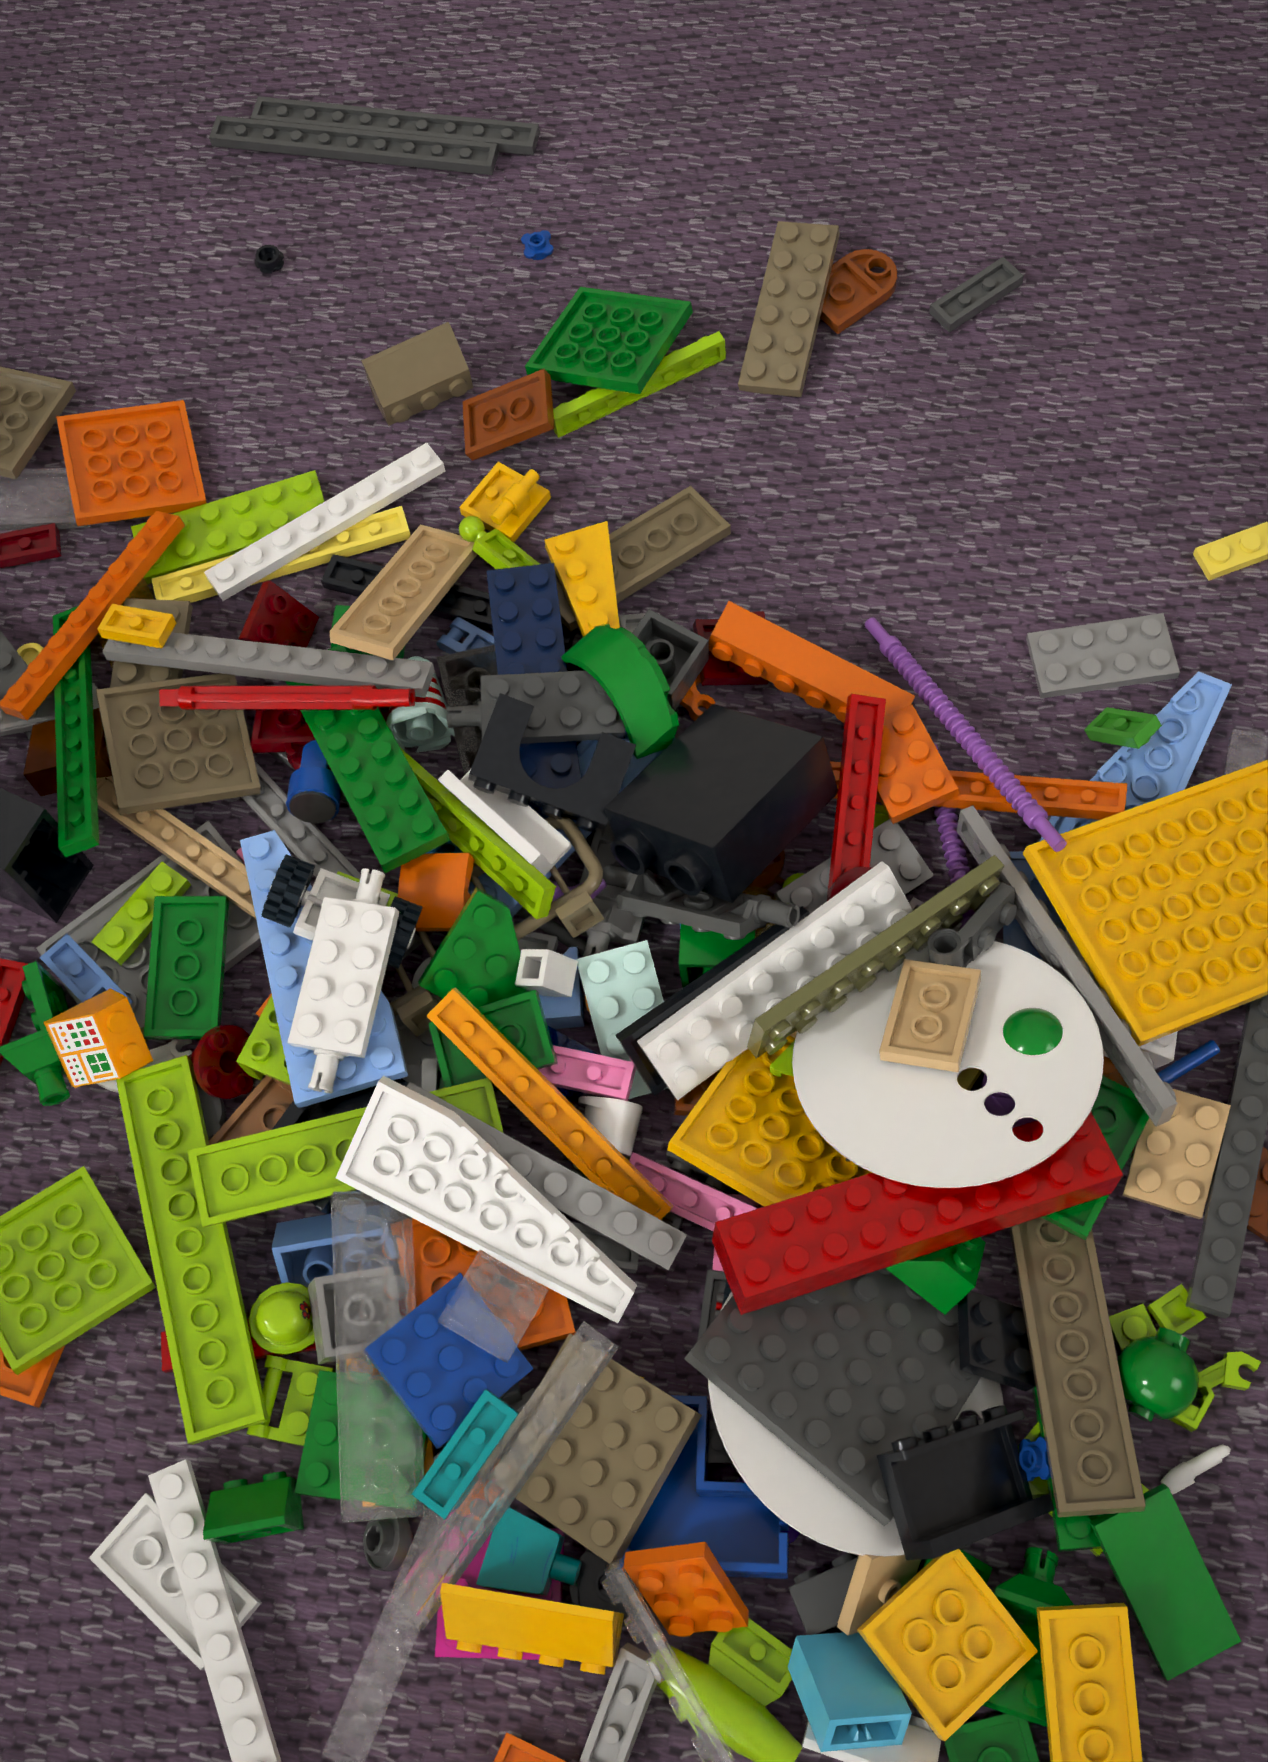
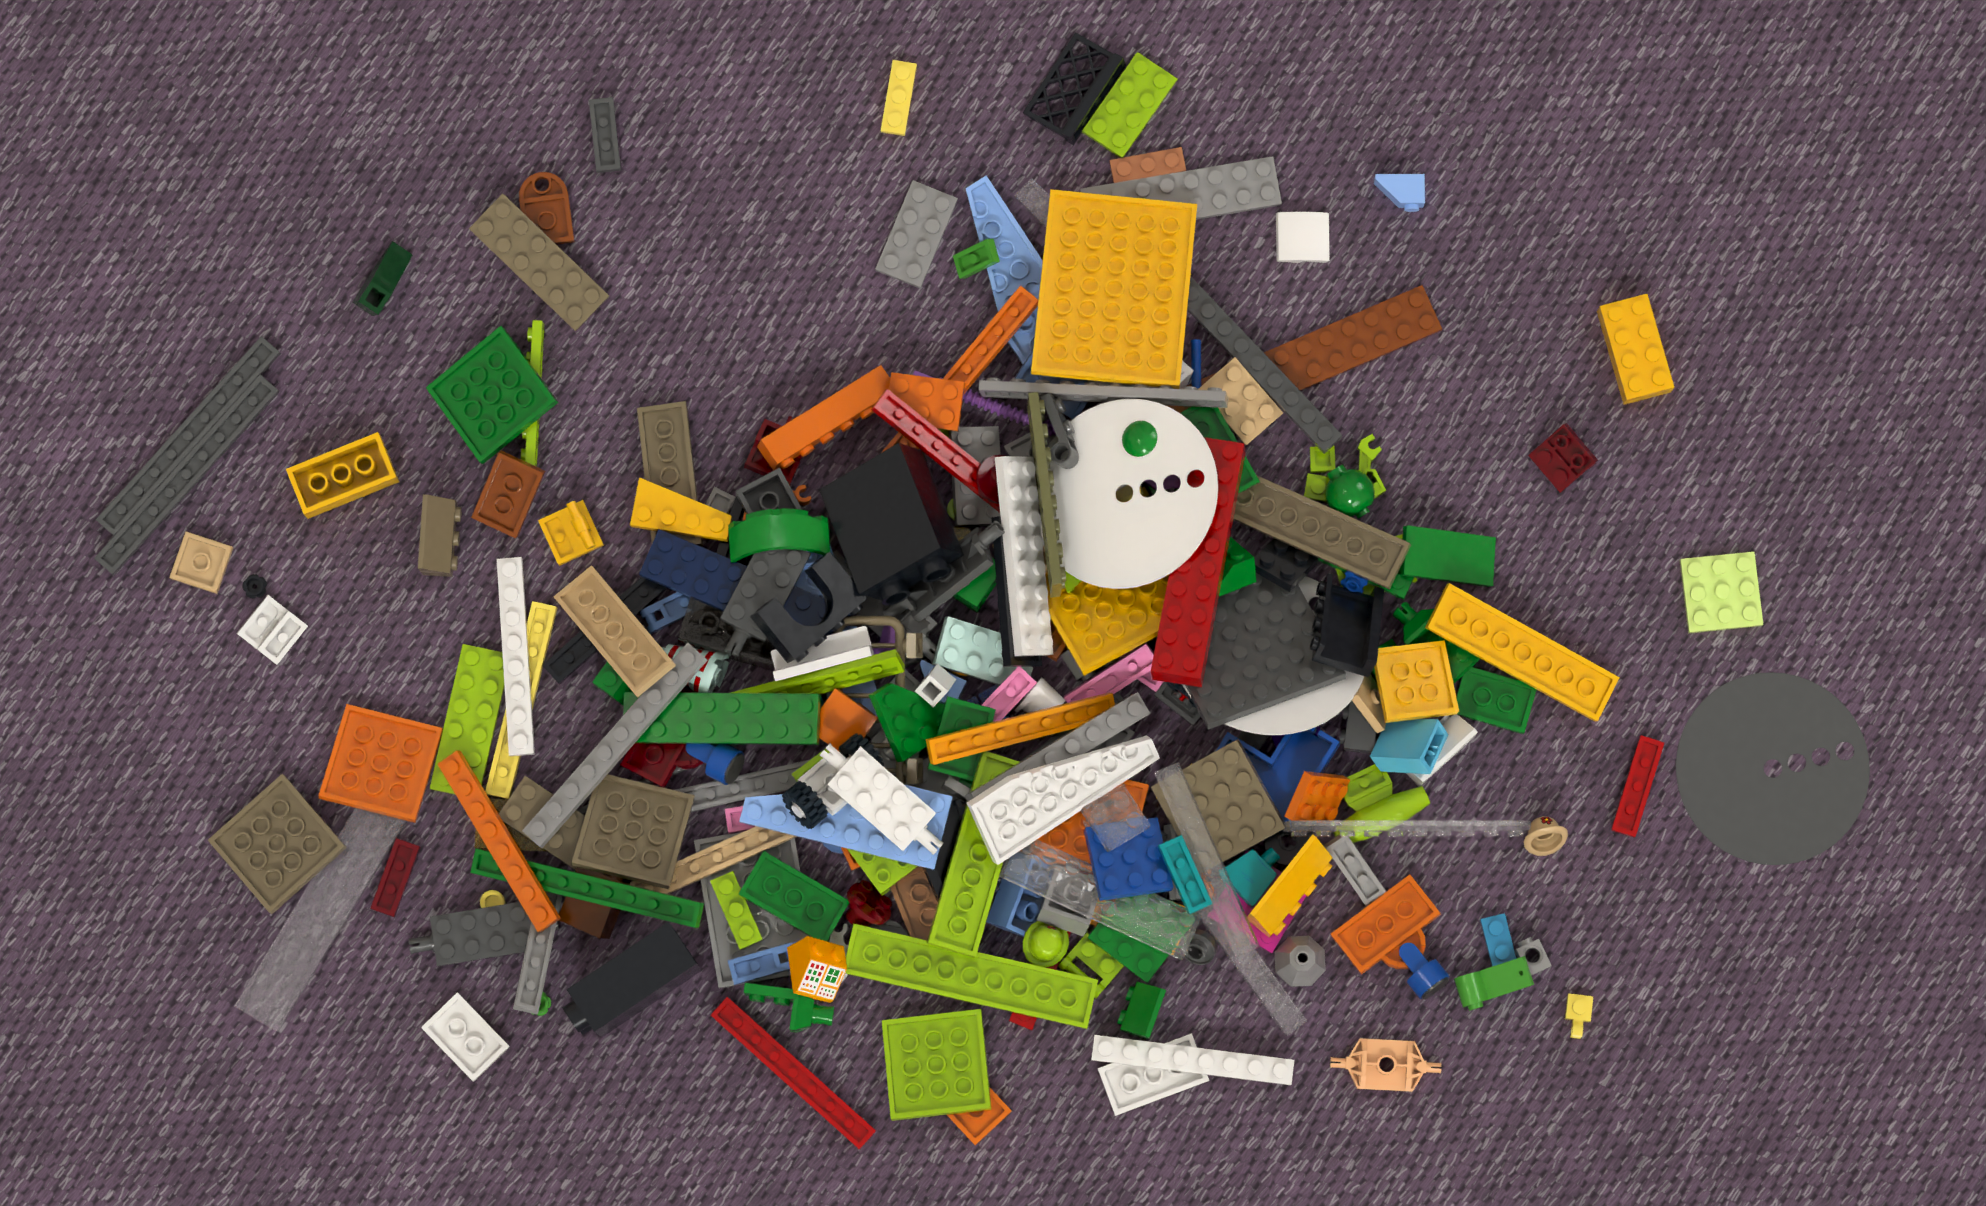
camera: 70 degrees left, 15 degrees up
(137, 626) = (542, 814): yellow plate -> none
(231, 298) = (272, 629): none -> white slope
(267, 203) = (201, 562): none -> tan plate
(278, 619) = (581, 727): dark red plate -> none
(285, 697) = (655, 745): red piece -> none
(433, 262) = (342, 475): none -> yellow brick
(461, 1702) = (1294, 972): none -> light grey cone
(493, 546) = (611, 556): lime plate -> none
(534, 250) = (373, 392): blue plate -> none
(669, 187) = (383, 279): none -> dark green slope
(930, 1015) = (1097, 486): tan plate -> none
(1033, 814) = (1012, 353): medium lavender hose -> none
(1185, 1473) = (1403, 510): white piece -> none

